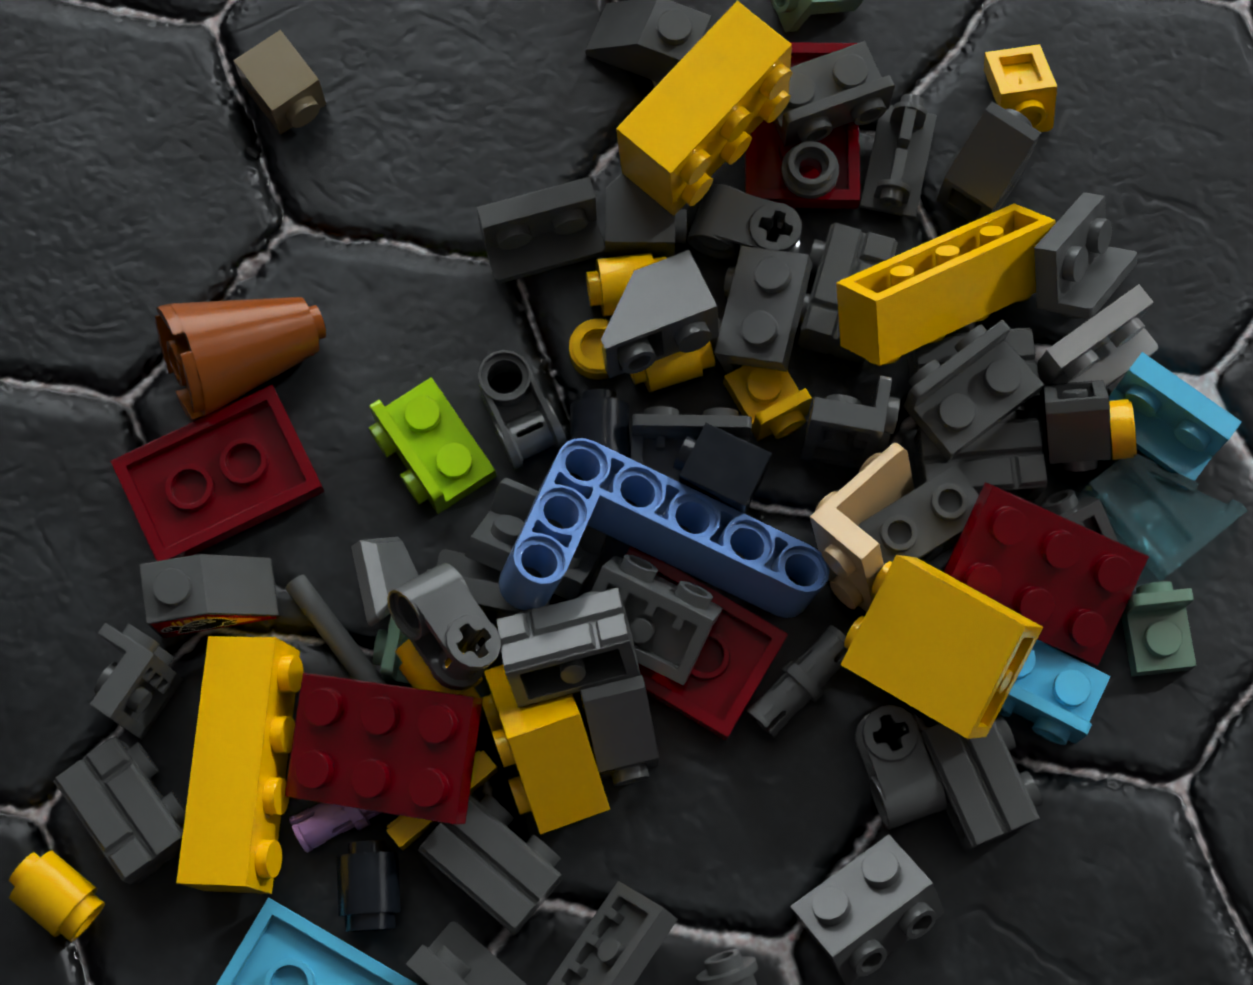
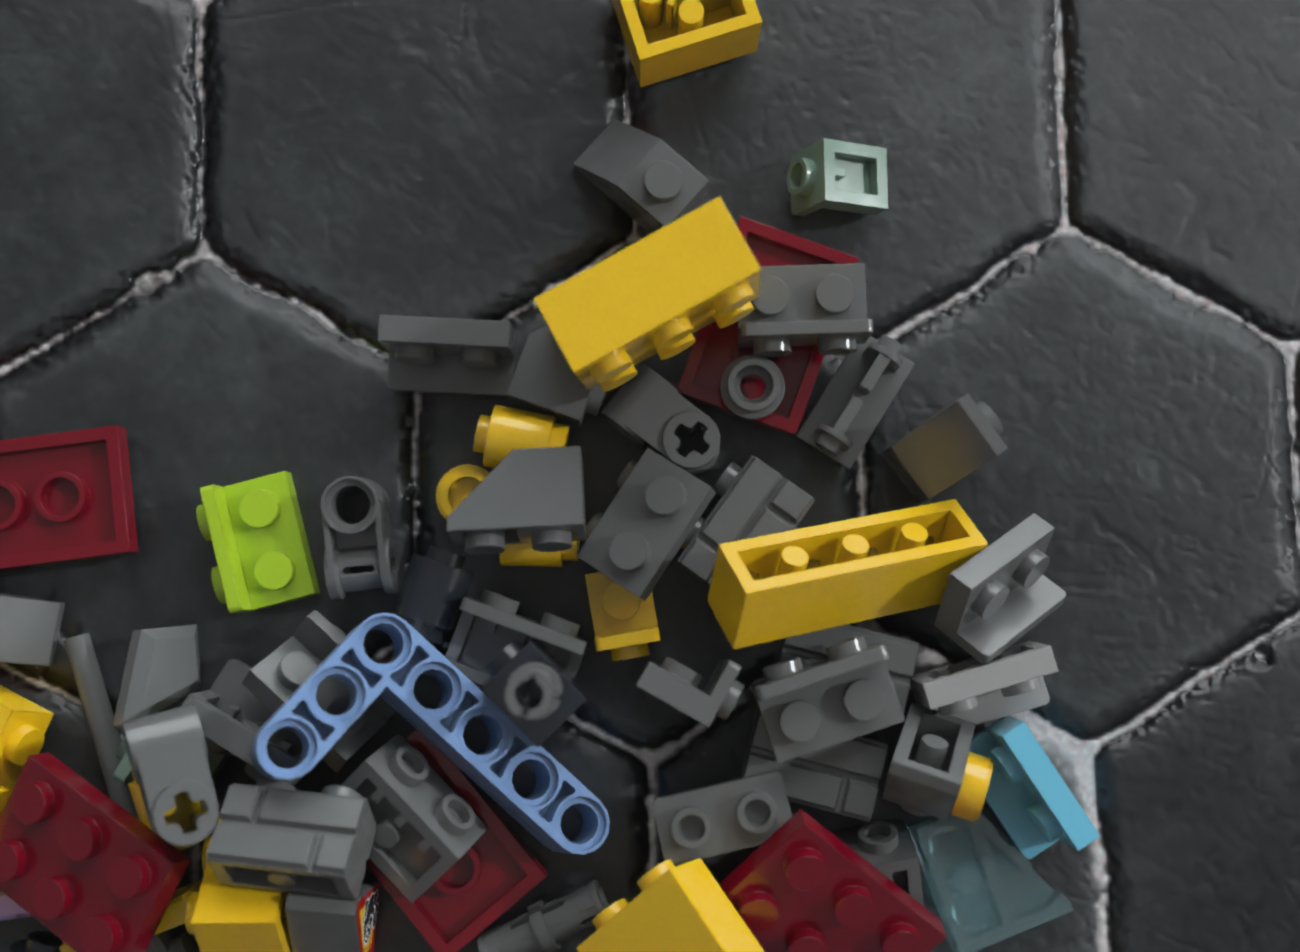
camera: 20 degrees right, 10 degrees up
(234, 346) = (85, 372): dark orange cone -> none
(281, 83) = (239, 95): dark tan brick -> none
(731, 437) = (519, 700): none -> dark grey pin
(846, 548) = (635, 786): tan bracket -> none
(1023, 83) = (1016, 366): yellow bracket -> none

